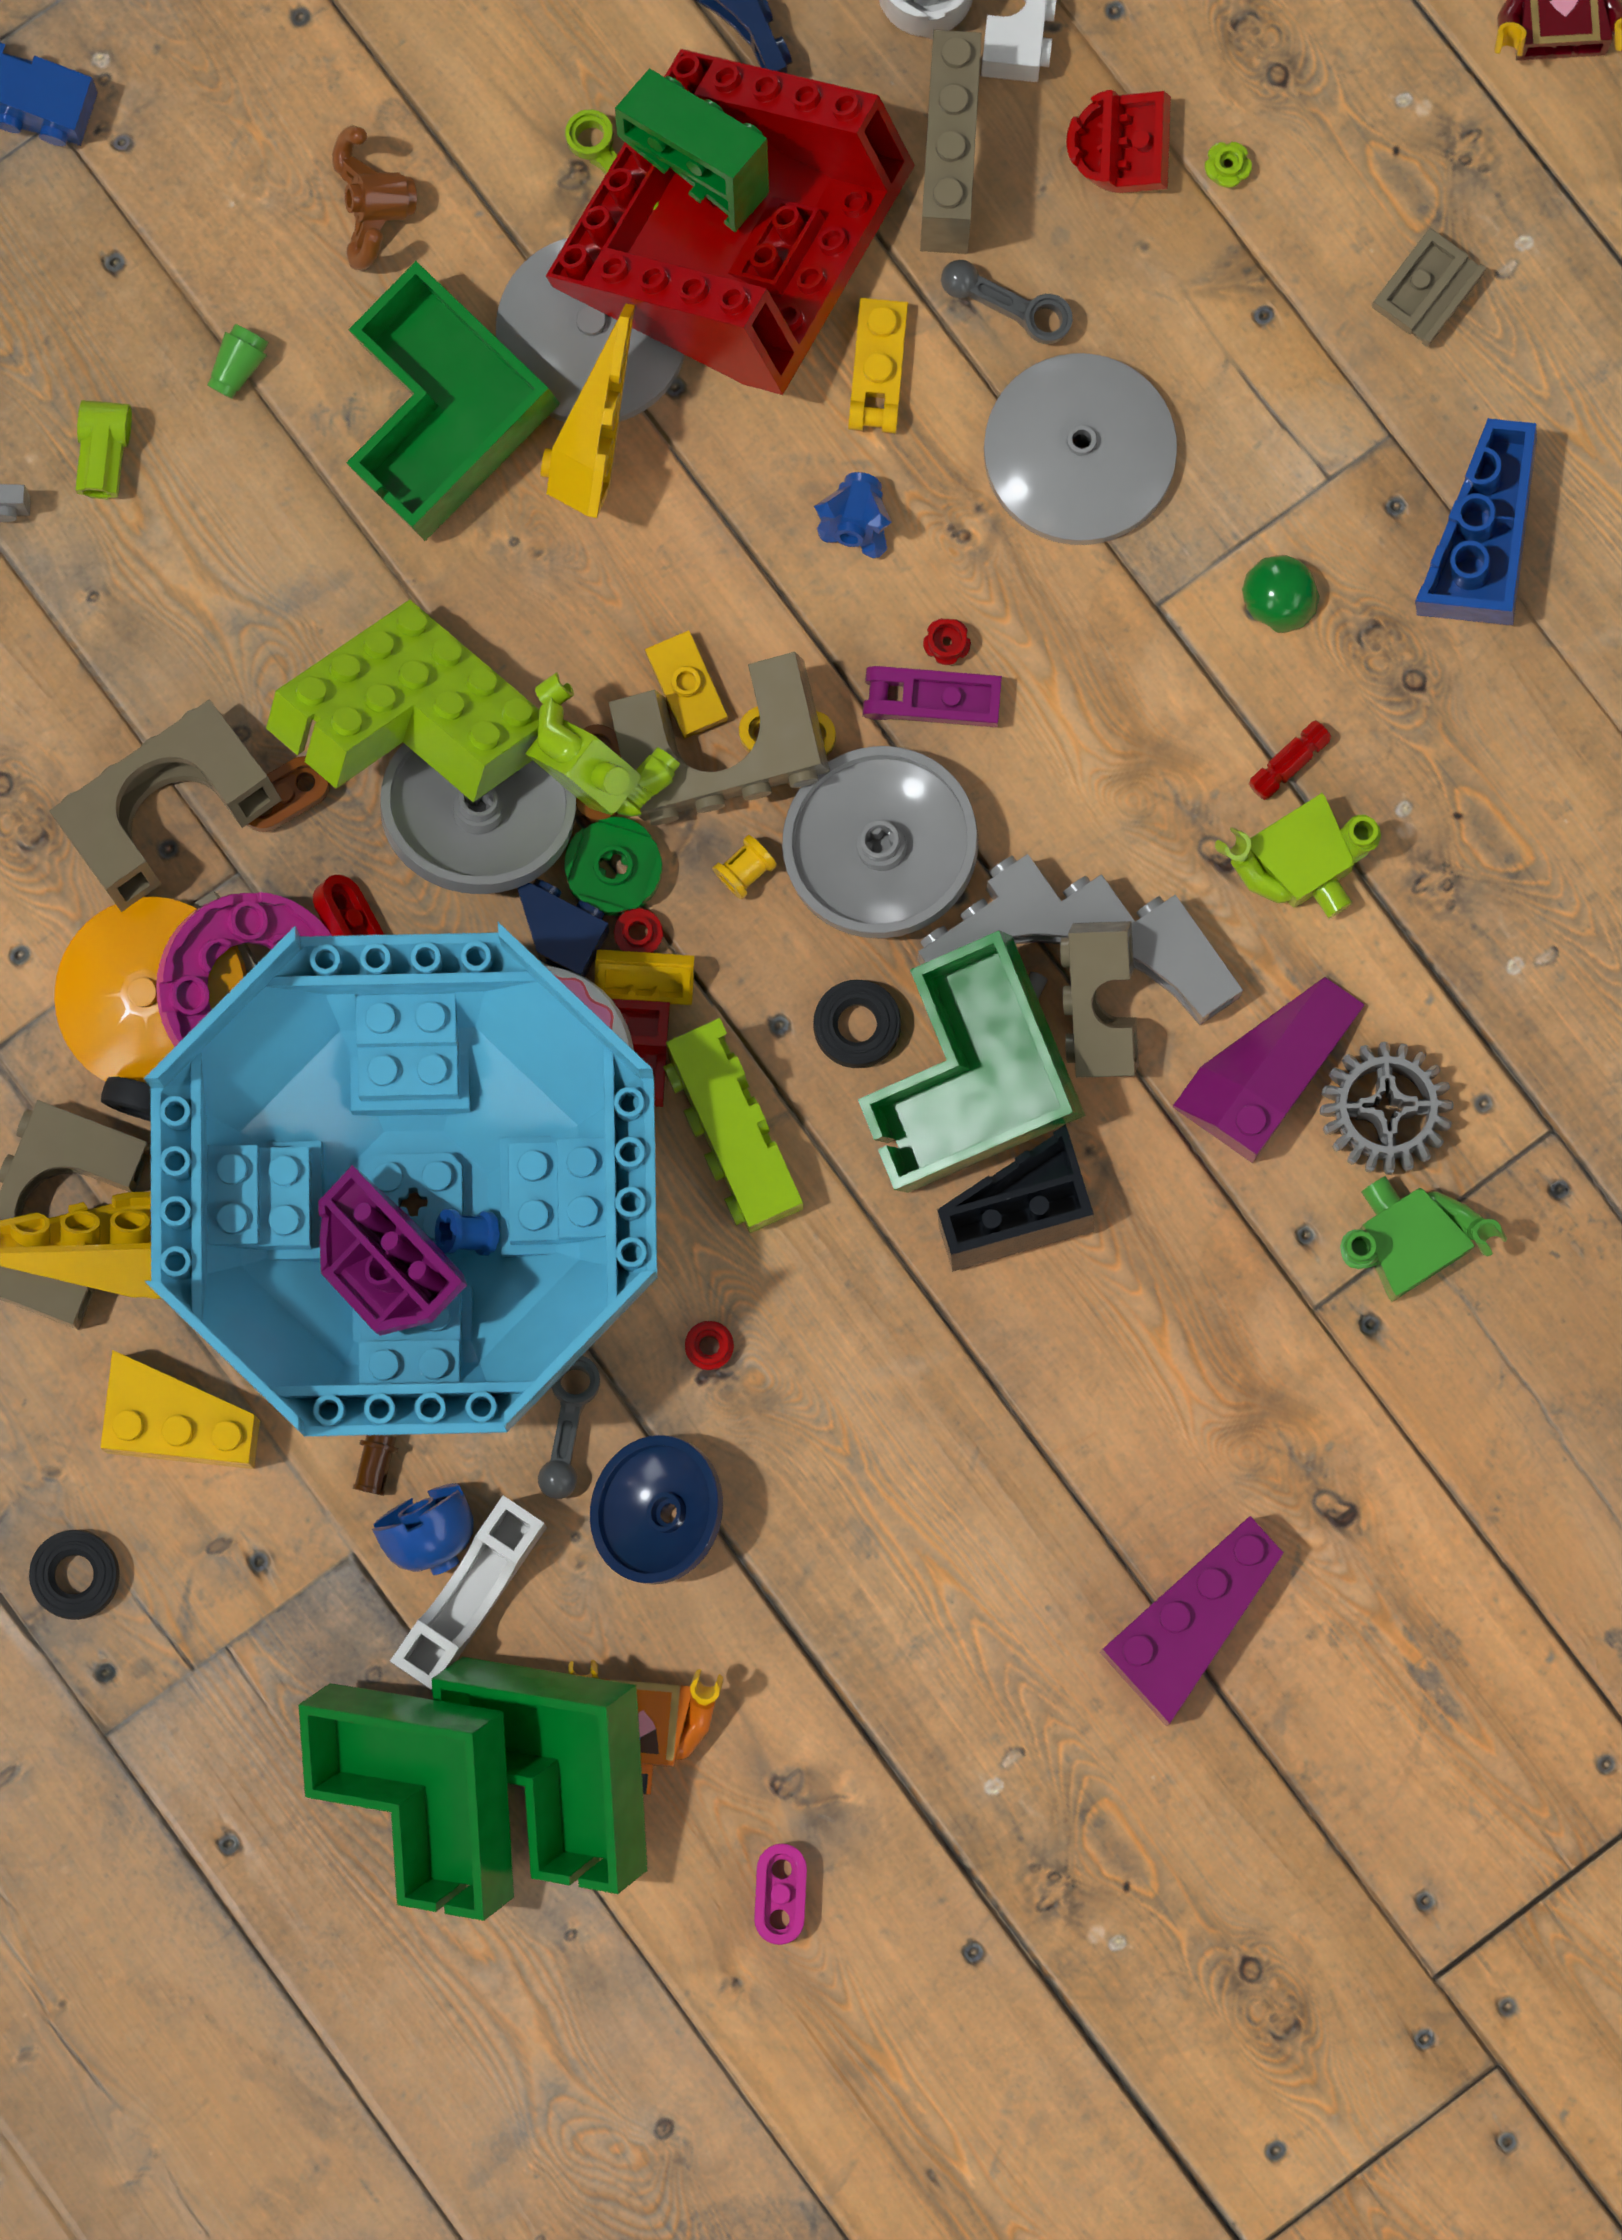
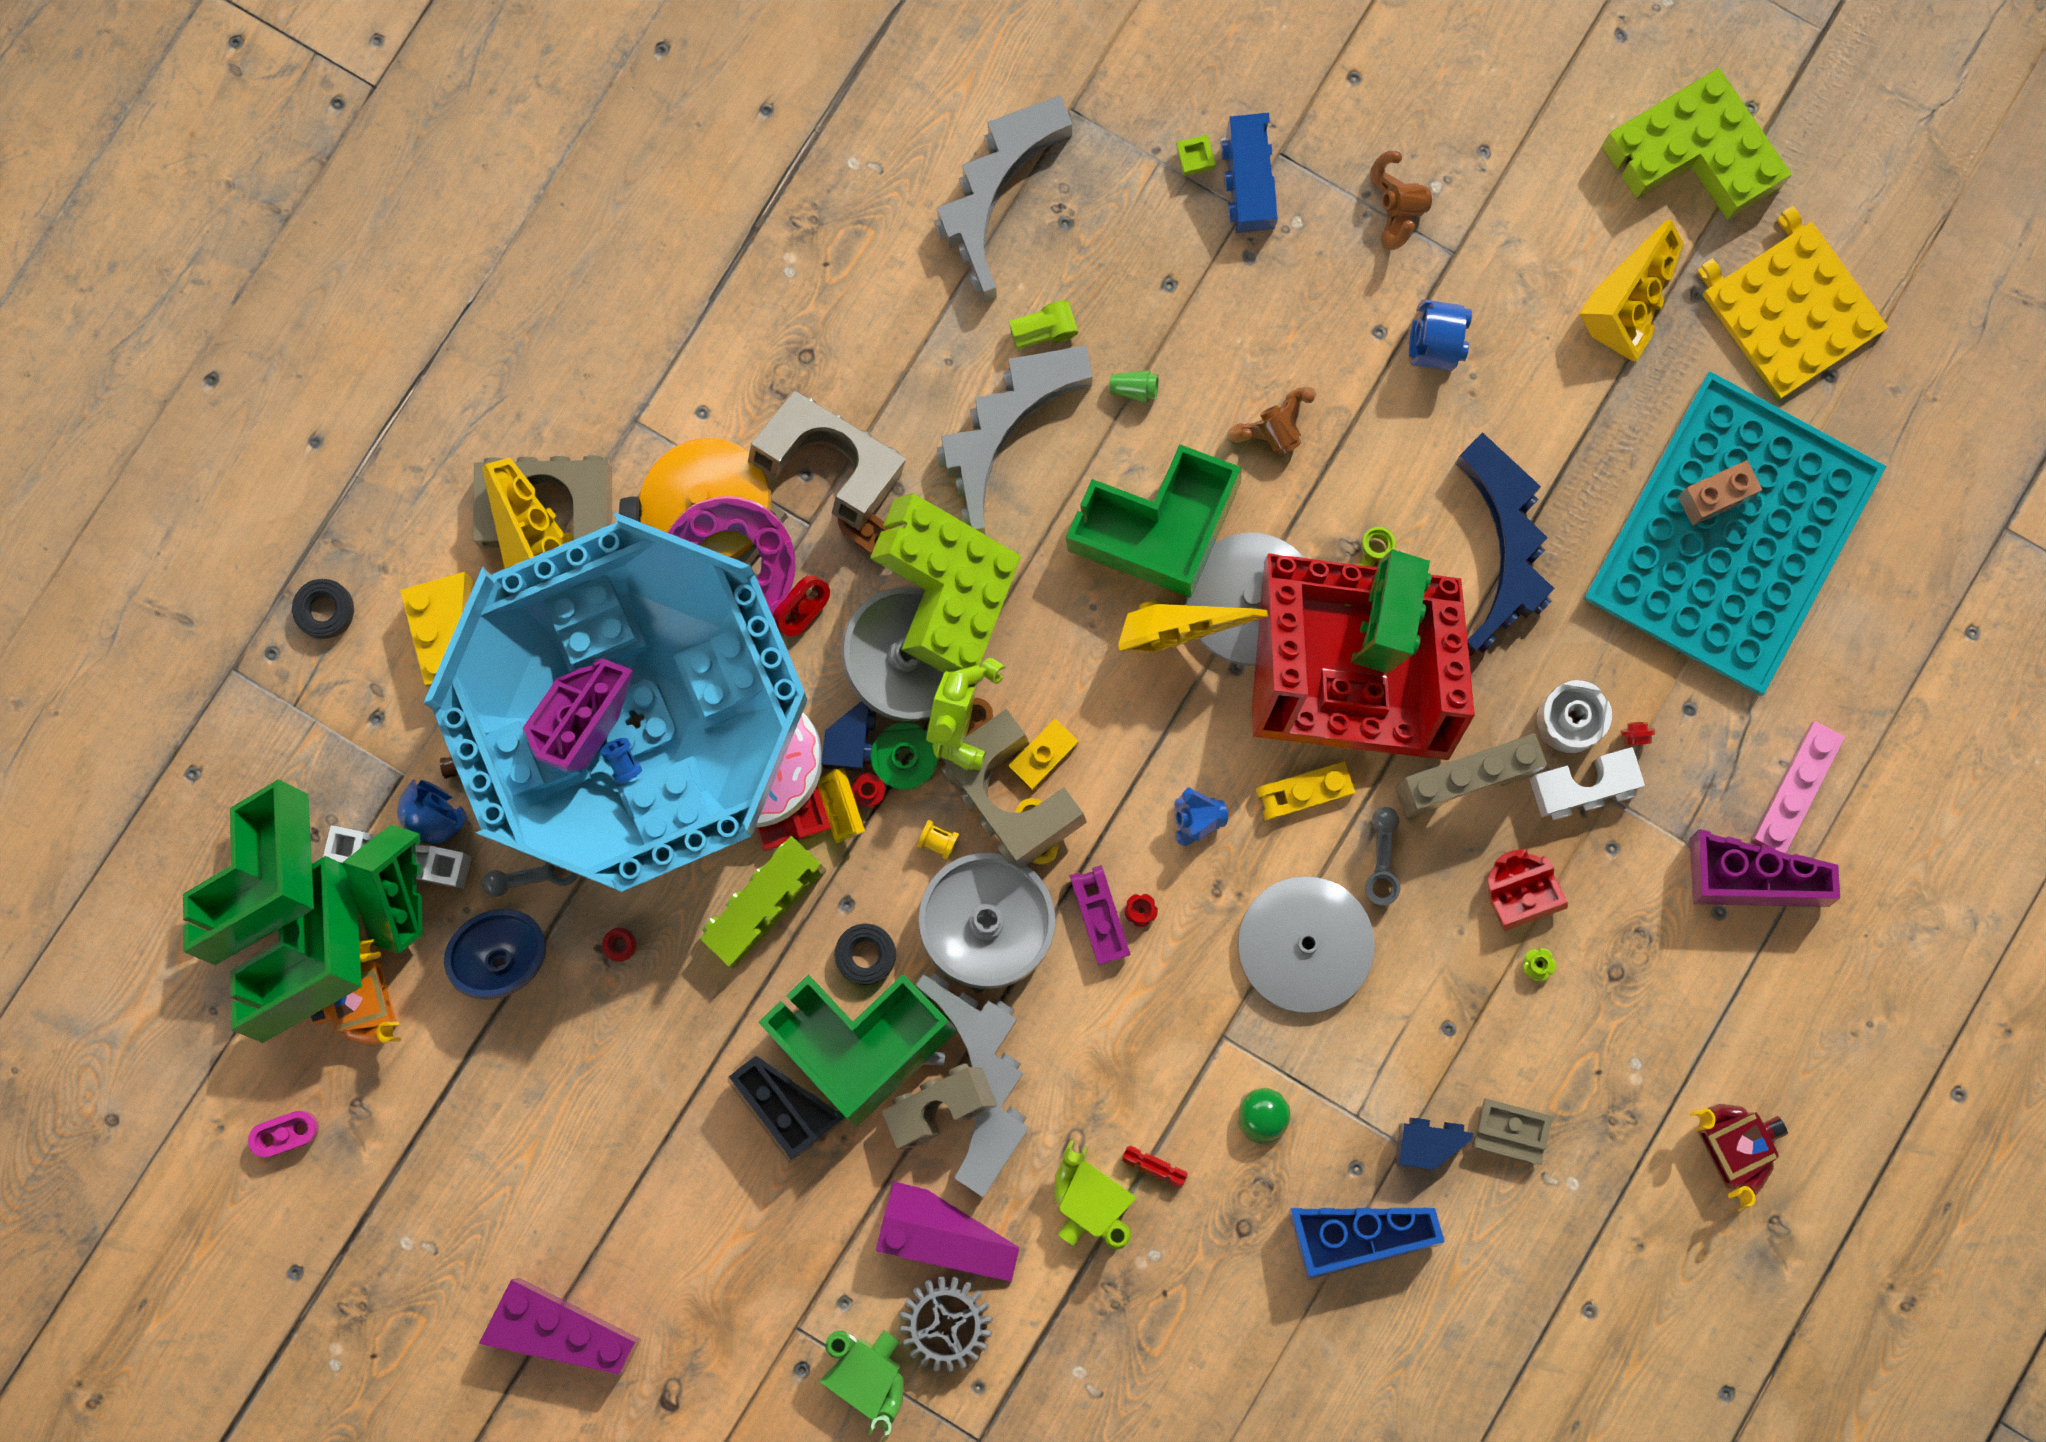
camera: 70 degrees right, 0 degrees up
(174, 495) = (1034, 382): none -> light grey arch
(507, 1617) = (386, 888): none -> green wedge
(1404, 401) = (1429, 1146): none -> dark blue slope

